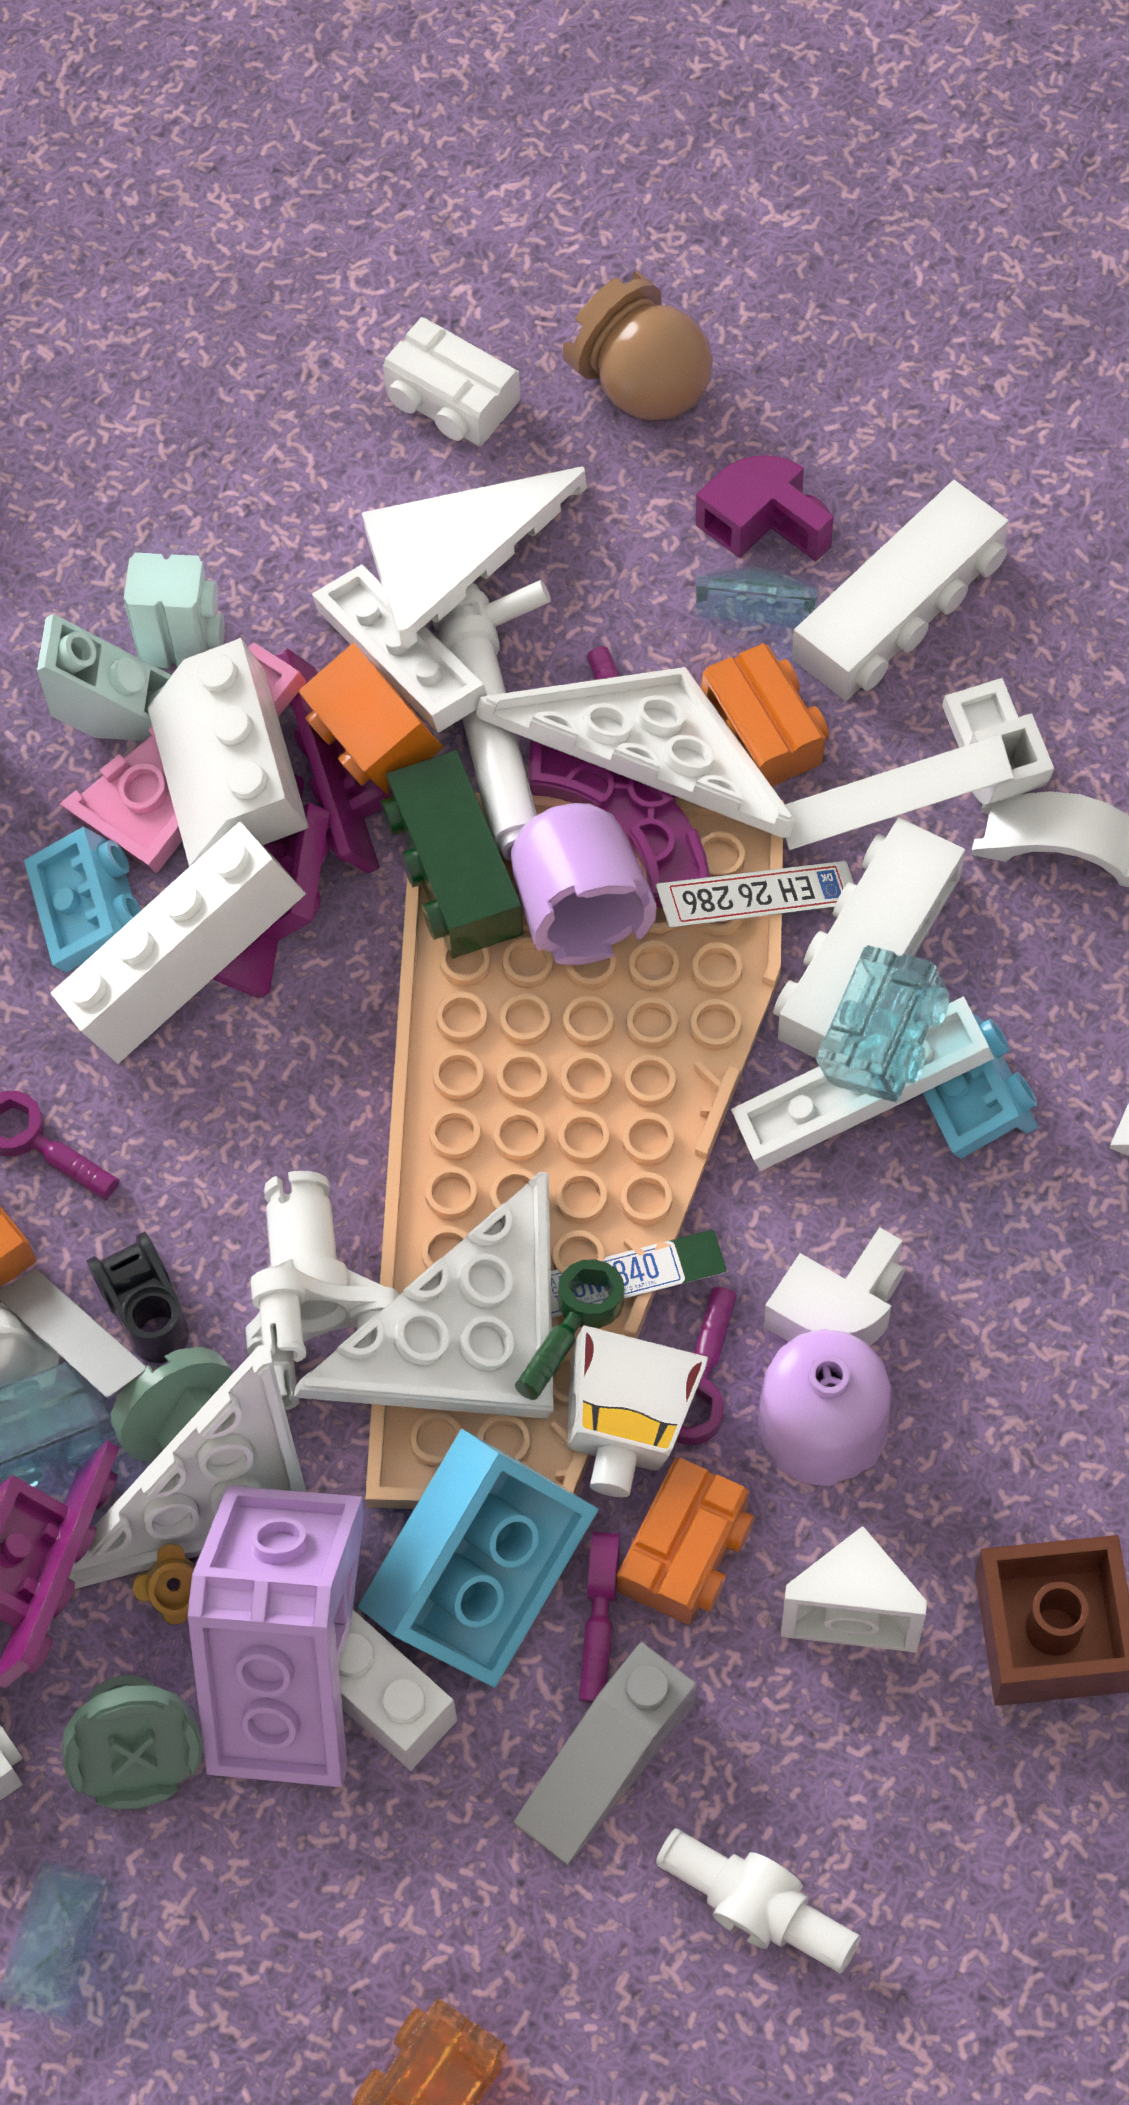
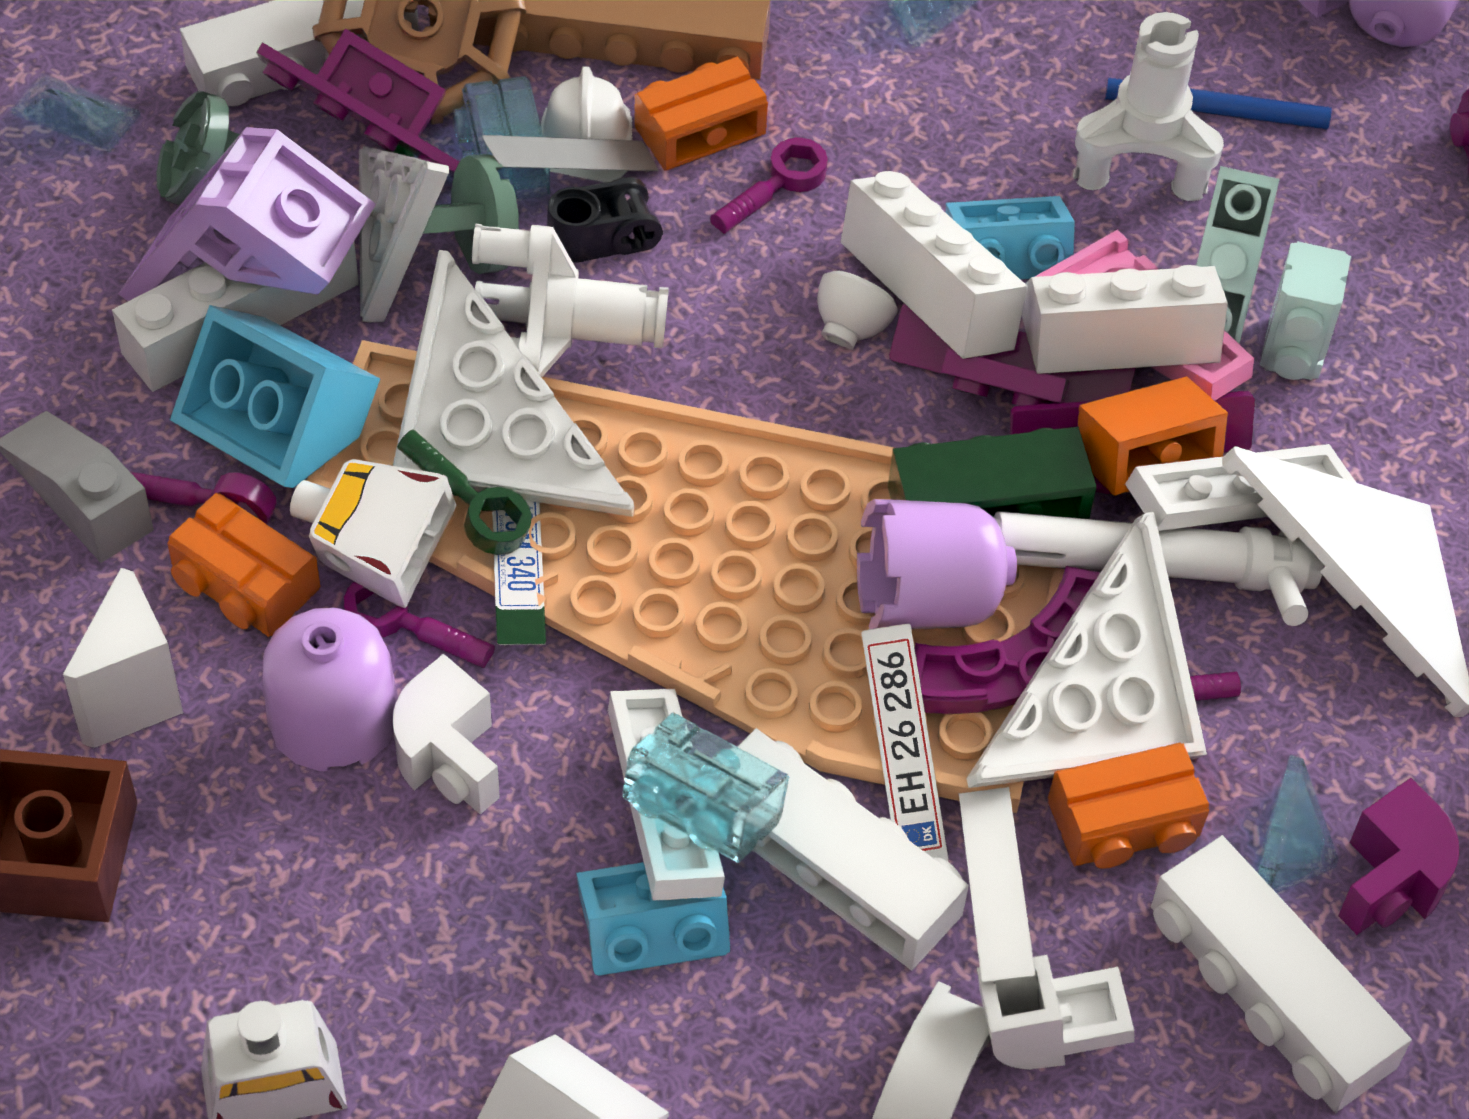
camera: 95 degrees right, 10 degrees down
(222, 1029) = (853, 308): none -> white brick

